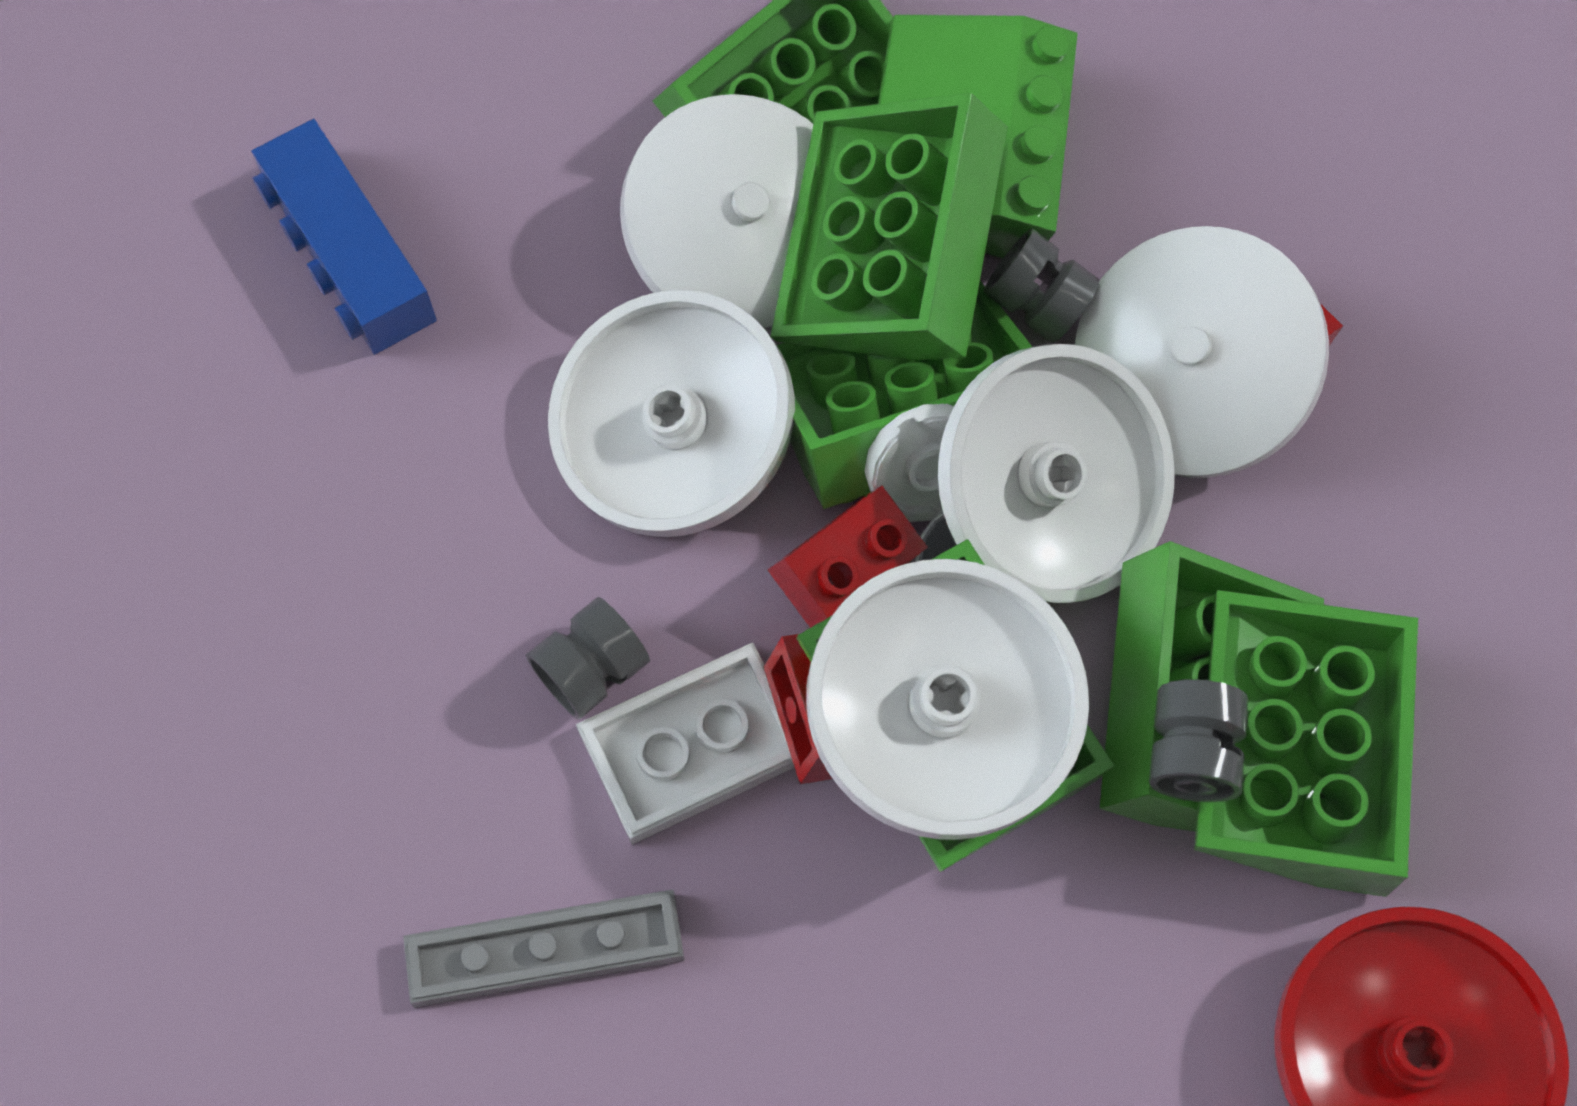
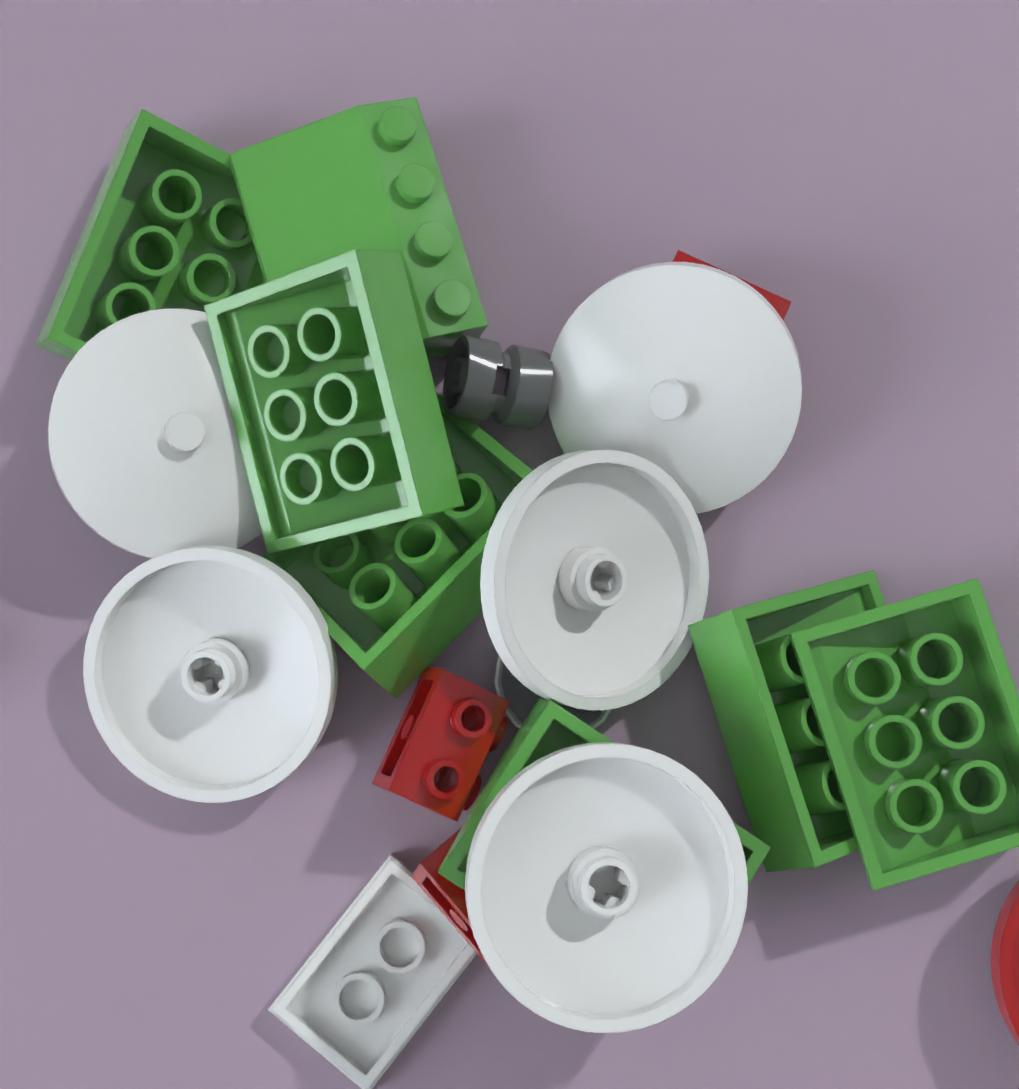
camera: 25 degrees left, 15 degrees up
(583, 661) = (244, 962): dark grey wheel -> none
(907, 460) = (453, 627): white tile -> none
(1198, 747) = (844, 808): dark grey wheel -> none

